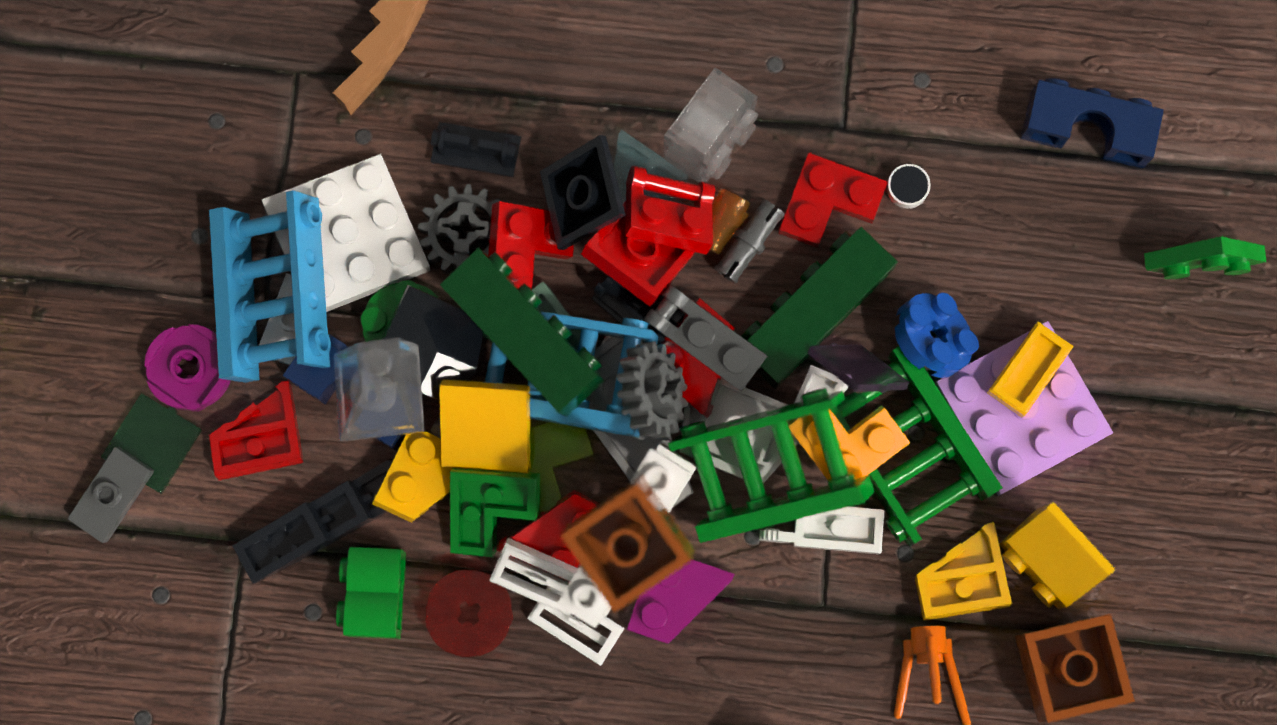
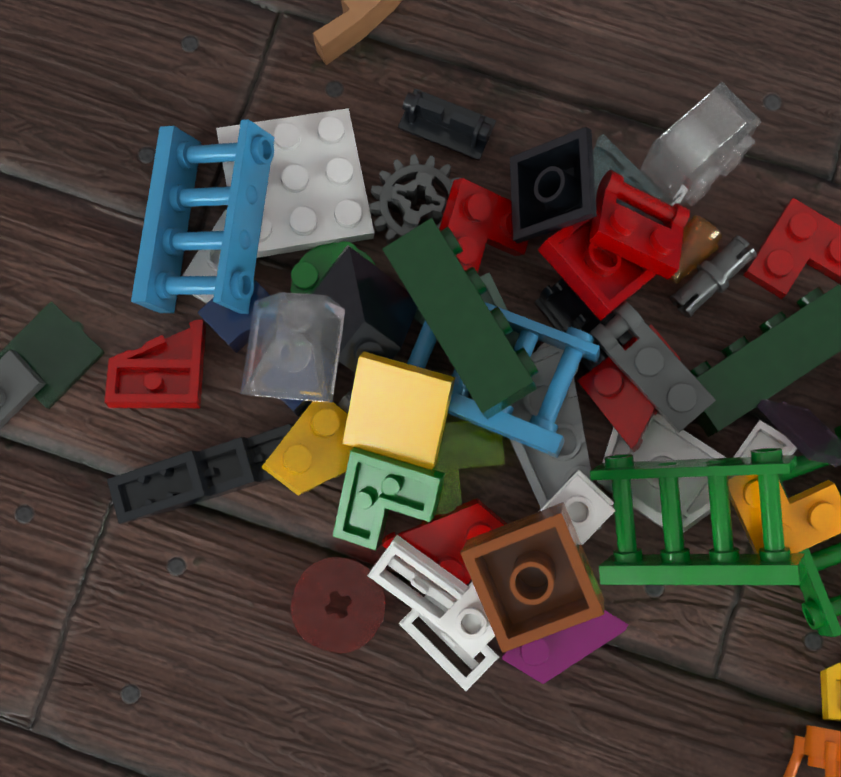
camera: 15 degrees right, 0 degrees up
(164, 373) = (78, 285): magenta plate -> none
(372, 593) = (241, 561): green brick -> none
(652, 390) = (585, 410): dark grey gear -> none
(838, 530) = (761, 606): white hinge -> none

